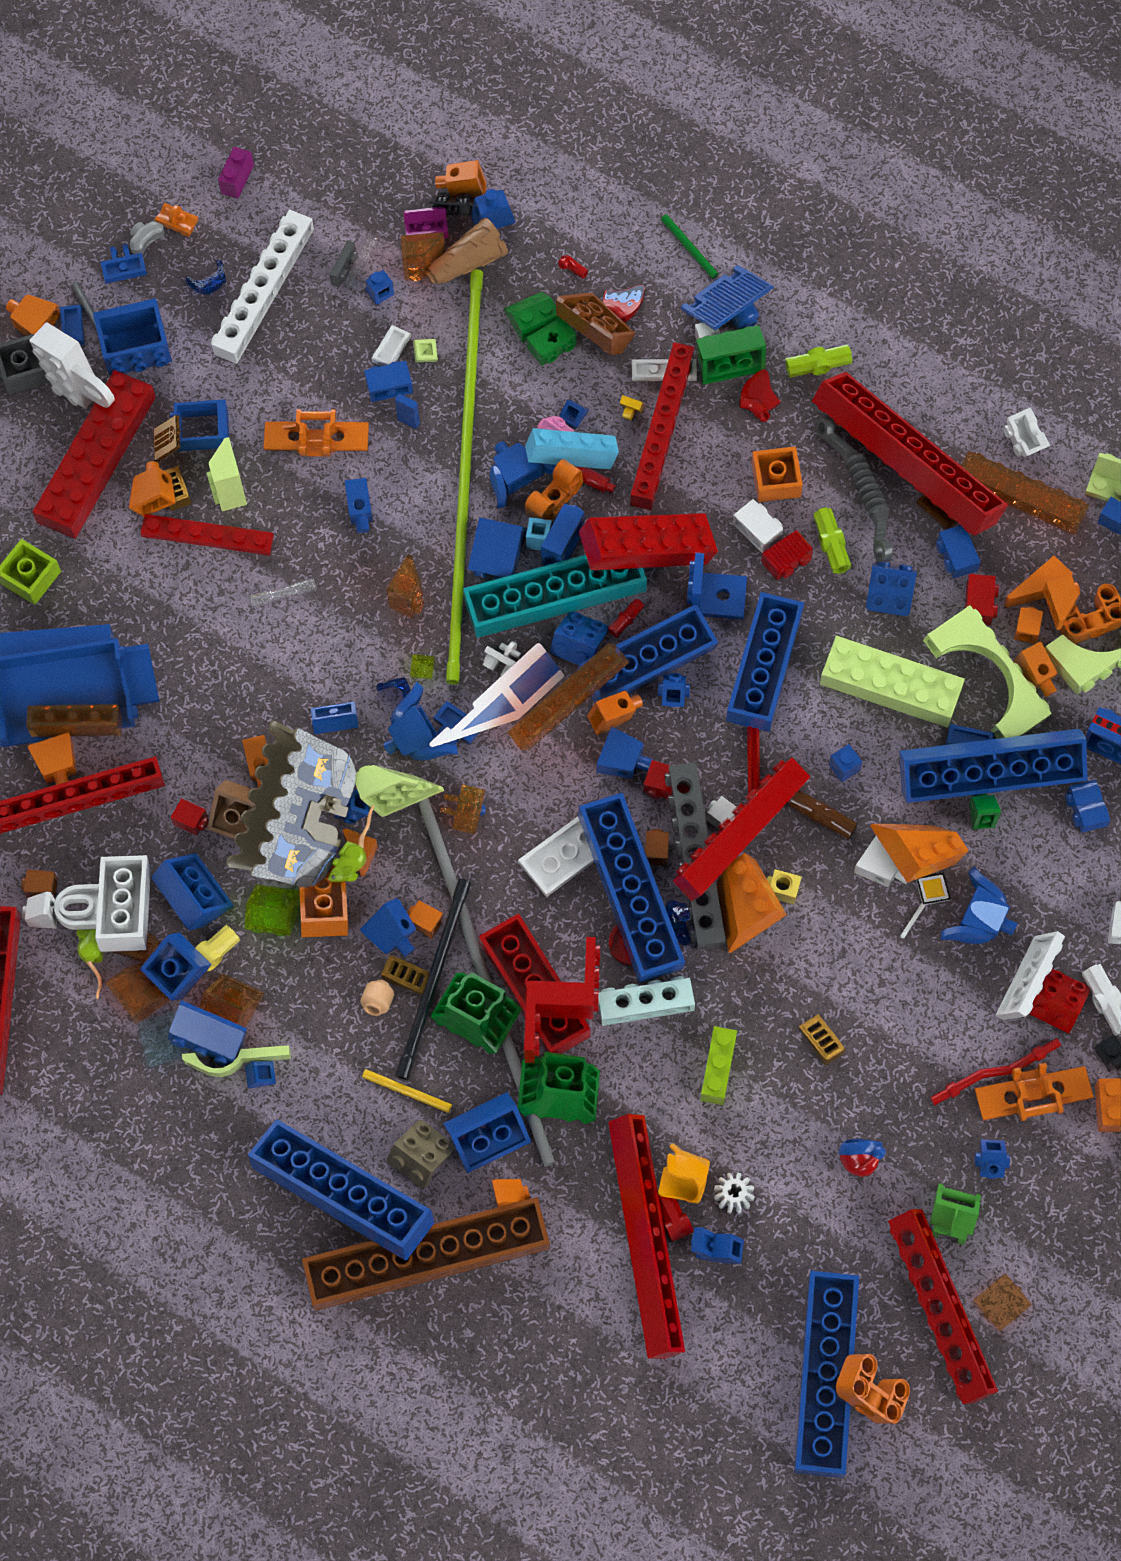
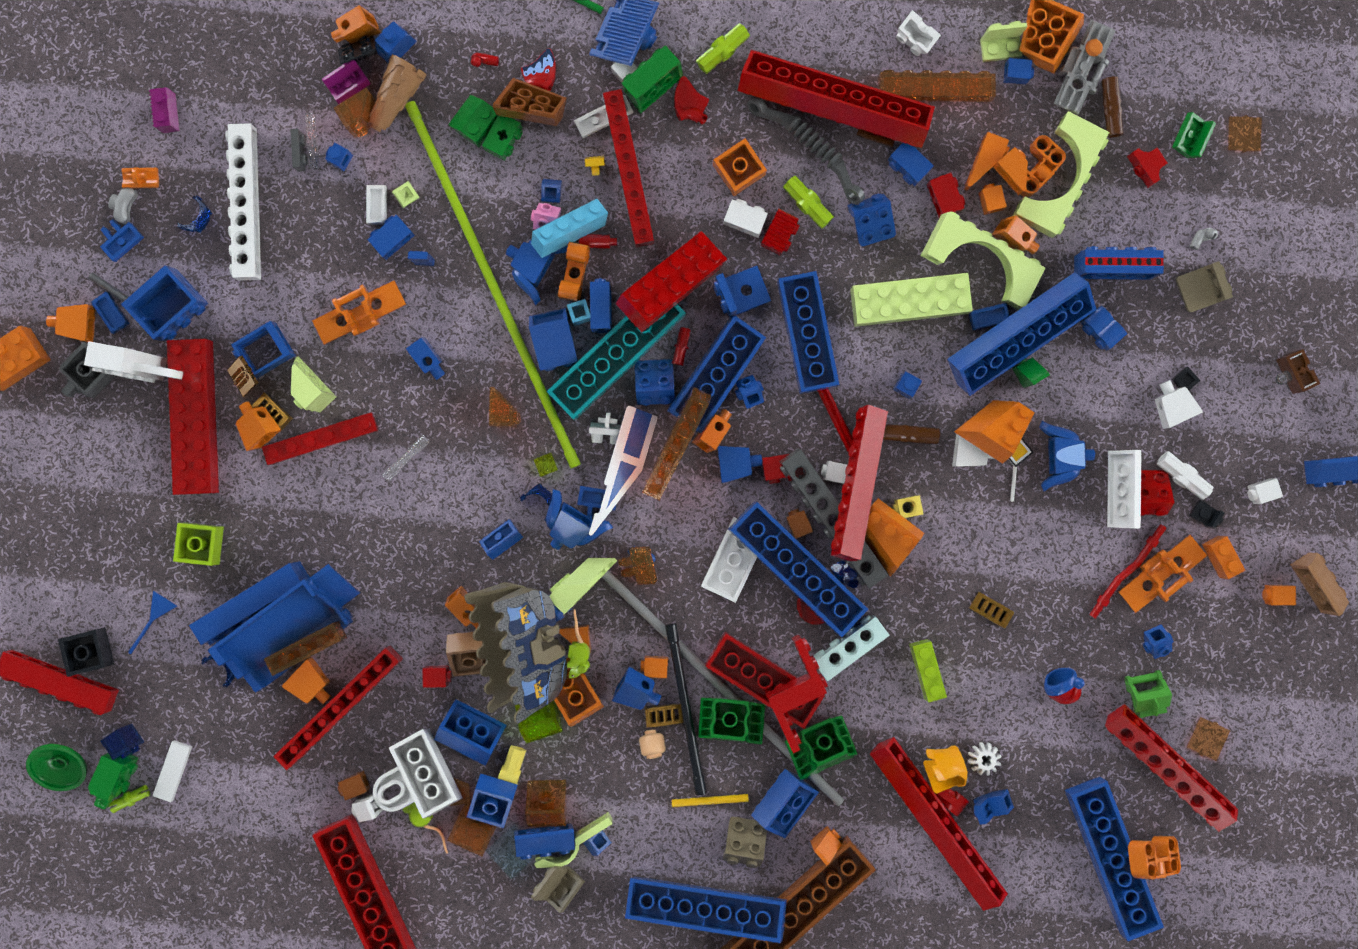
camera: 30 degrees left, 20 degrees up
(192, 1092) = (558, 887): none -> dark tan bracket

